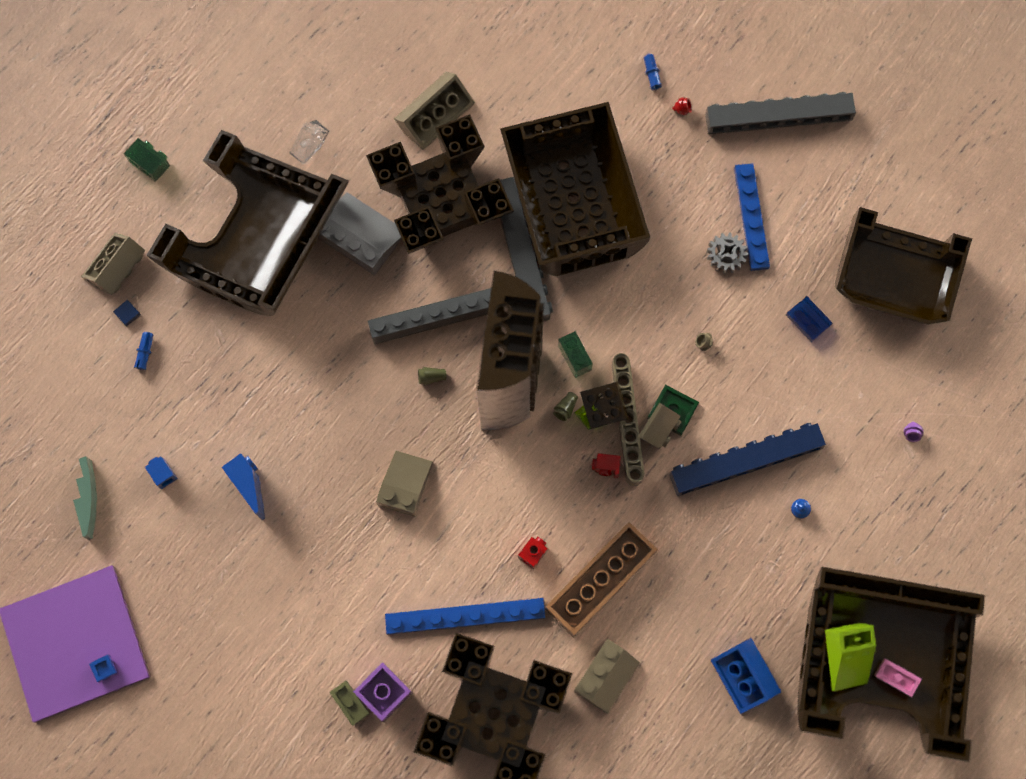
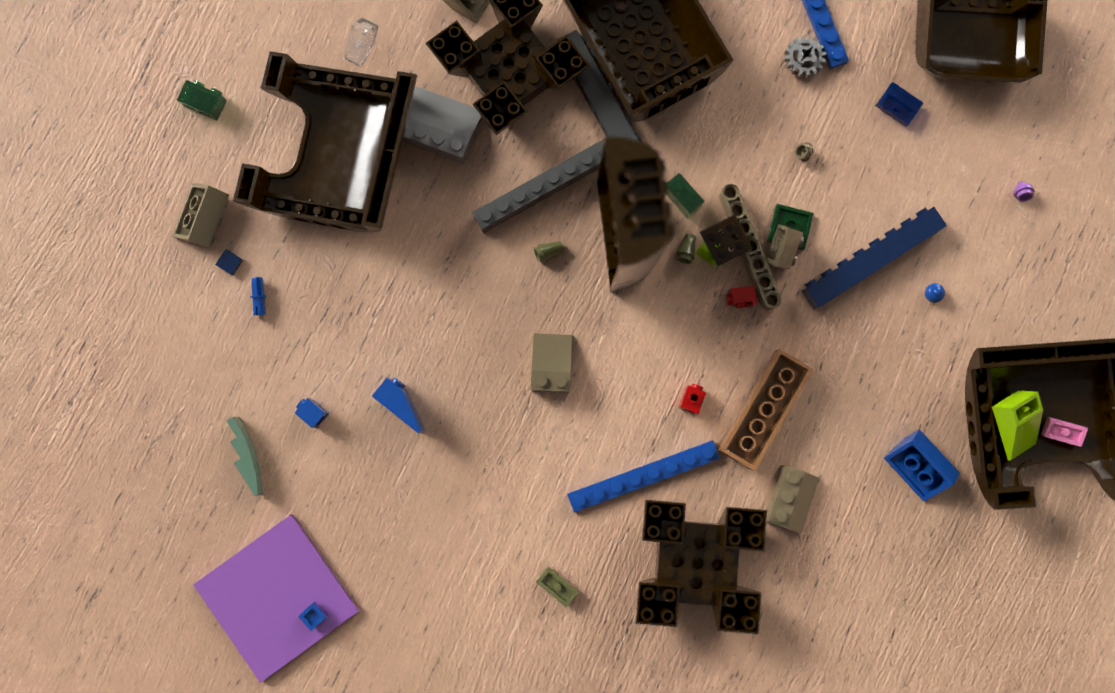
camera: 20 degrees left, 10 degrees up
(382, 692) = (587, 569): medium lavender brick -> none

